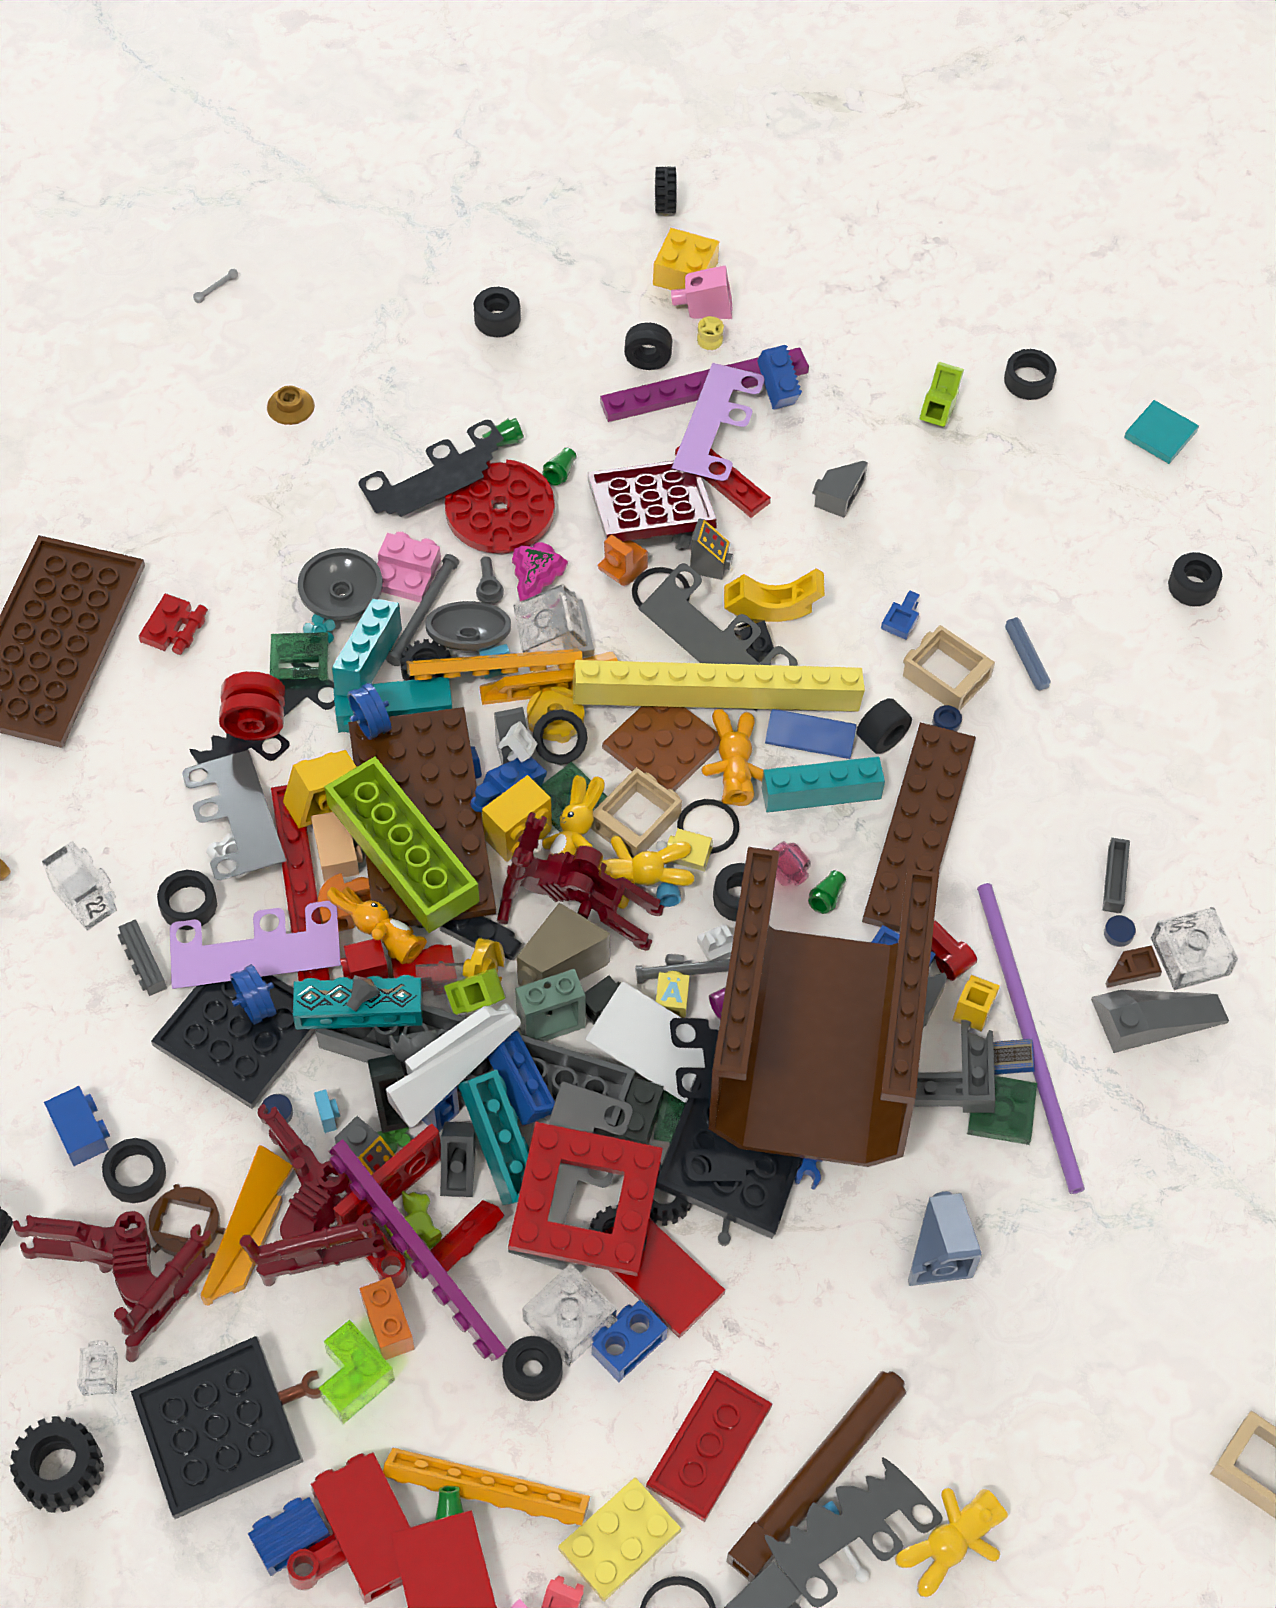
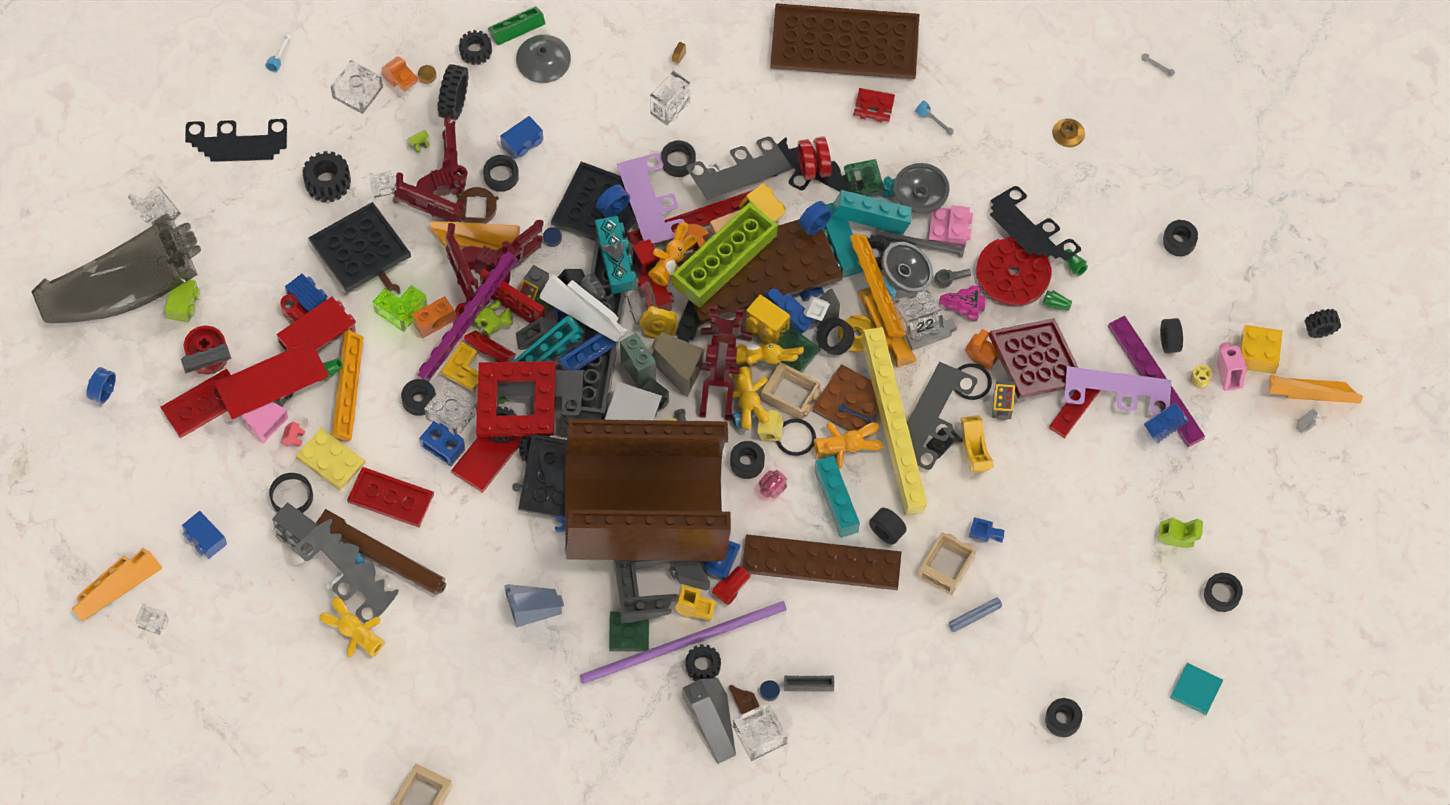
camera: 80 degrees right, 5 degrees up
(25, 1296) = (417, 139): none -> lime tile
(142, 957) = (635, 145): dark grey piece -> none
(202, 563) = (924, 109): none -> hinge
(327, 1110) = (555, 260): medium azure plate -> none
(475, 992) = (632, 314): lime brick -> none
(494, 1295) = (458, 367): none -> yellow plate
(680, 750) = (842, 408): none -> dark blue hinge
(752, 225) = (1313, 390): none -> light orange wedge
(798, 238) = (1307, 421): none -> light grey plate
(810, 733) = (876, 485): slope -> none
(826, 894) = (759, 511): green cone -> none
(839, 488) = (1084, 478): dark grey slope -> none
(947, 717) = (909, 569): dark blue tile -> none
(1013, 1056) = (662, 630): tile -> none
(1068, 1027) = (707, 652): none -> black tyre

